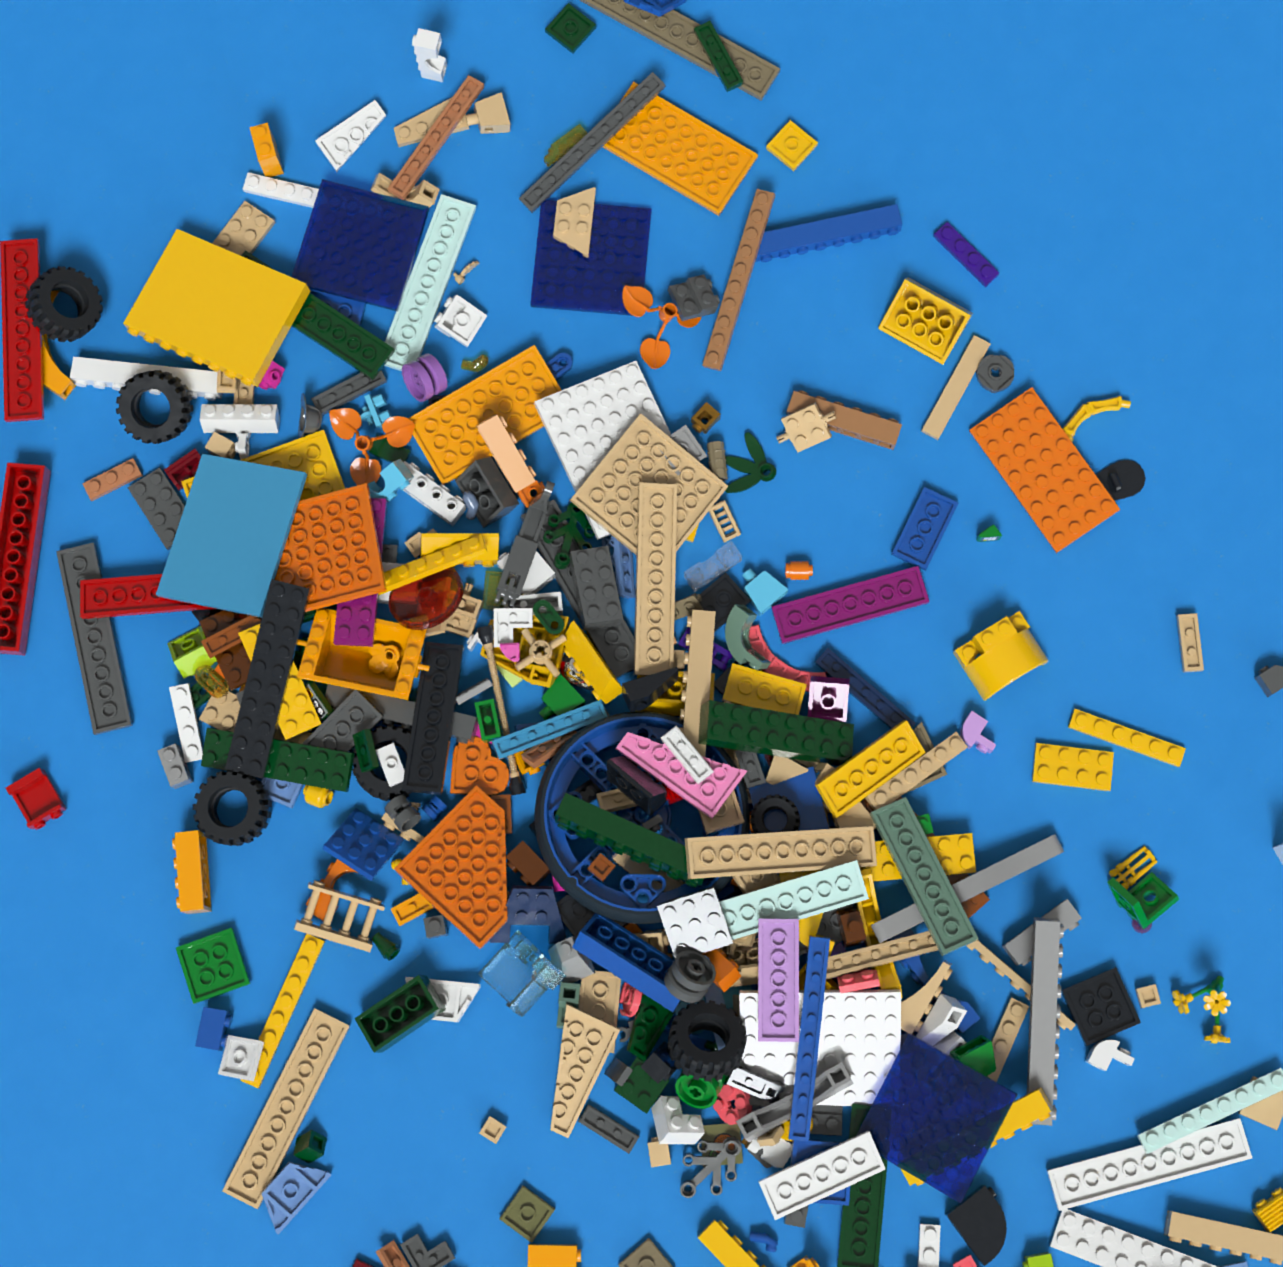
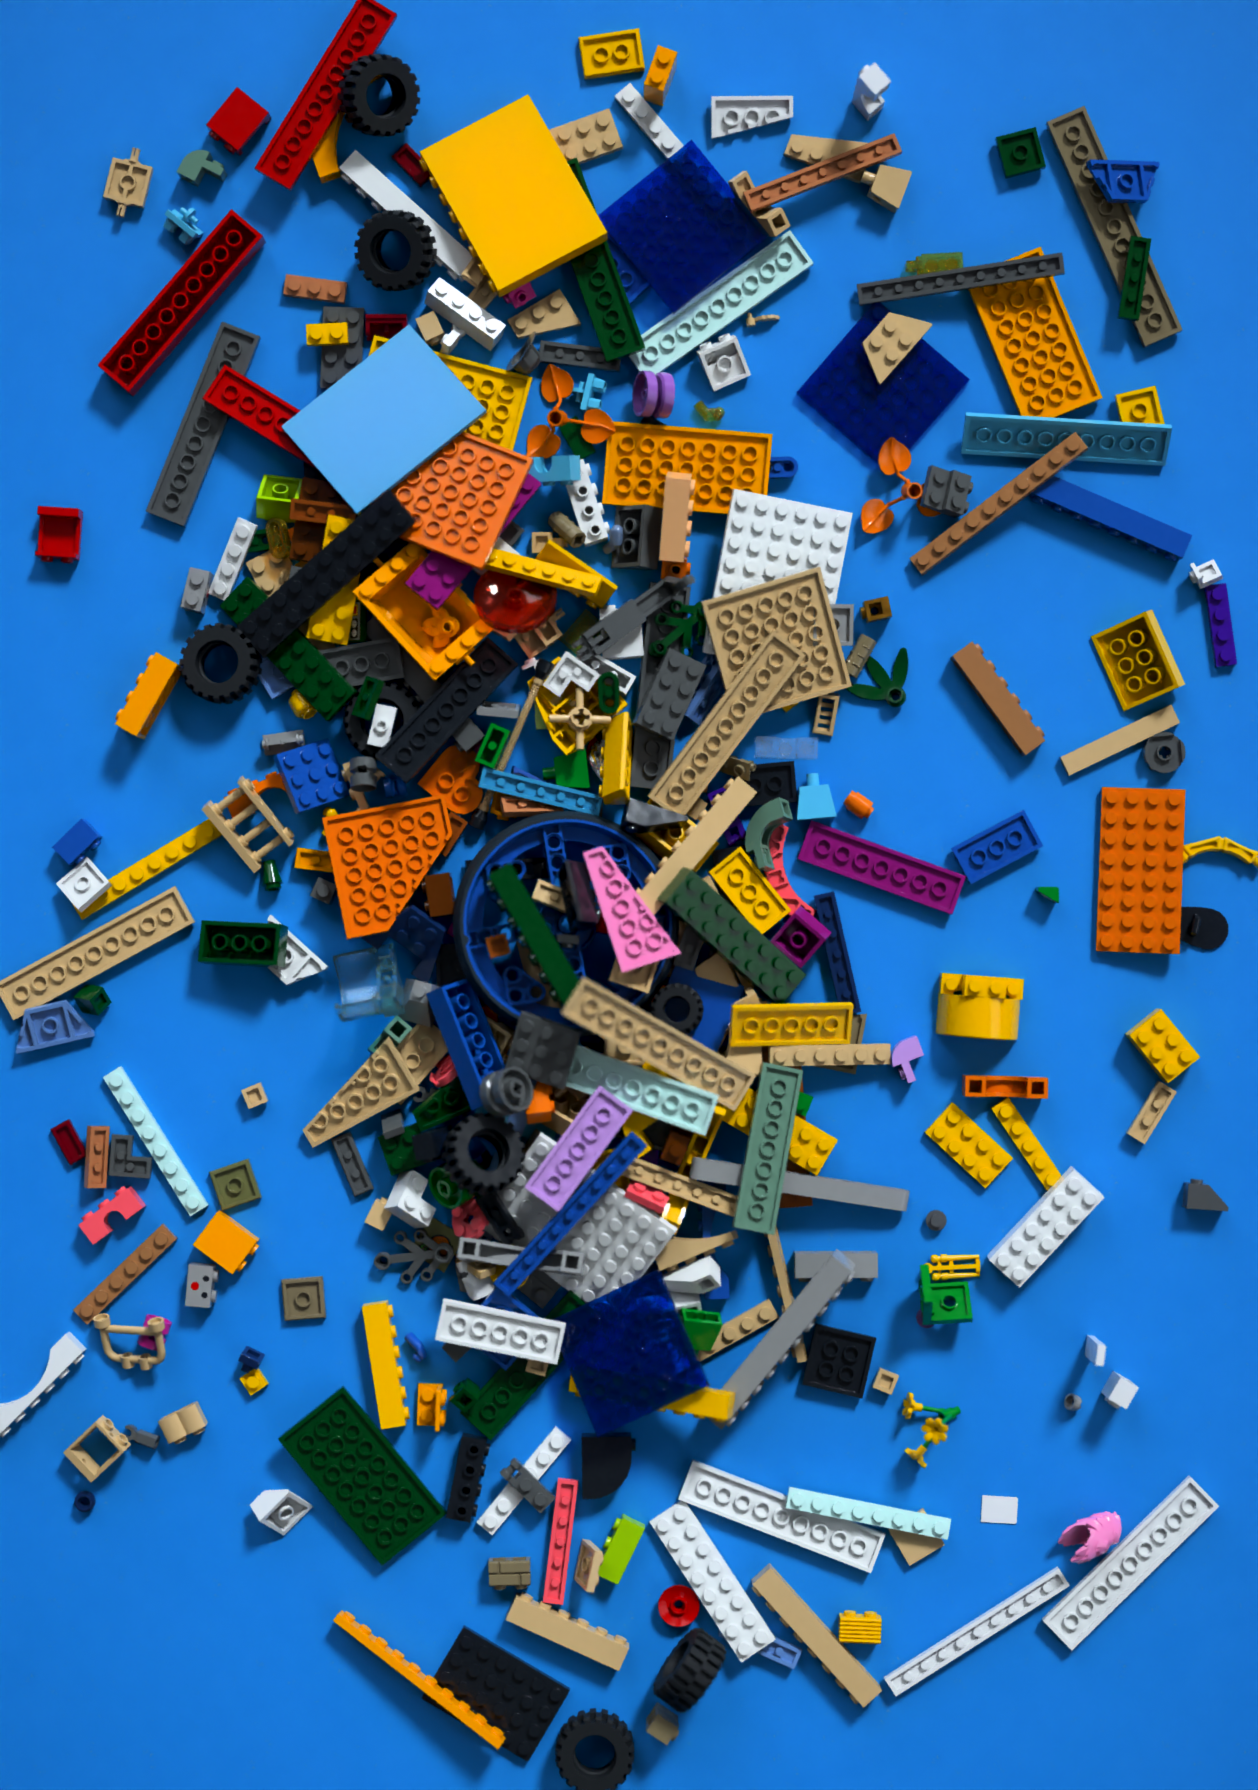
camera: 30 degrees right, 10 degrees up
(123, 340) = (409, 162): none -> dark red tile
(144, 504) = (327, 334): none -> yellow plate
(213, 965) = (113, 788): green plate -> none
(219, 162) = (611, 54): none -> yellow tile
(301, 379) = (544, 316): none -> tan wing
(321, 835) = (282, 742): none -> light grey hinge
(429, 521) = (566, 529): none -> dark tan axle
(439, 1225) = (155, 1141): none -> light aqua plate
(511, 651) = (555, 699): tile -> none
(687, 755) = (639, 902): white tile -> none
(731, 212) = (1038, 435): none -> medium azure plate
(806, 427) = (959, 682): tan plate -> none
(827, 1249) = (463, 1392): none -> dark green brick
(870, 1184) = (536, 1367): none -> tan plate
(927, 225) = (1205, 574): none -> white bracket
(1066, 701) = (1004, 1086): none -> orange arch
(1092, 842) = (936, 1220): none -> dark grey plate
(1103, 1052) = (814, 1399): white brick -> none
(1159, 586) = (1162, 1045): none -> yellow brick
(1178, 785) = (1045, 1226): none -> white brick

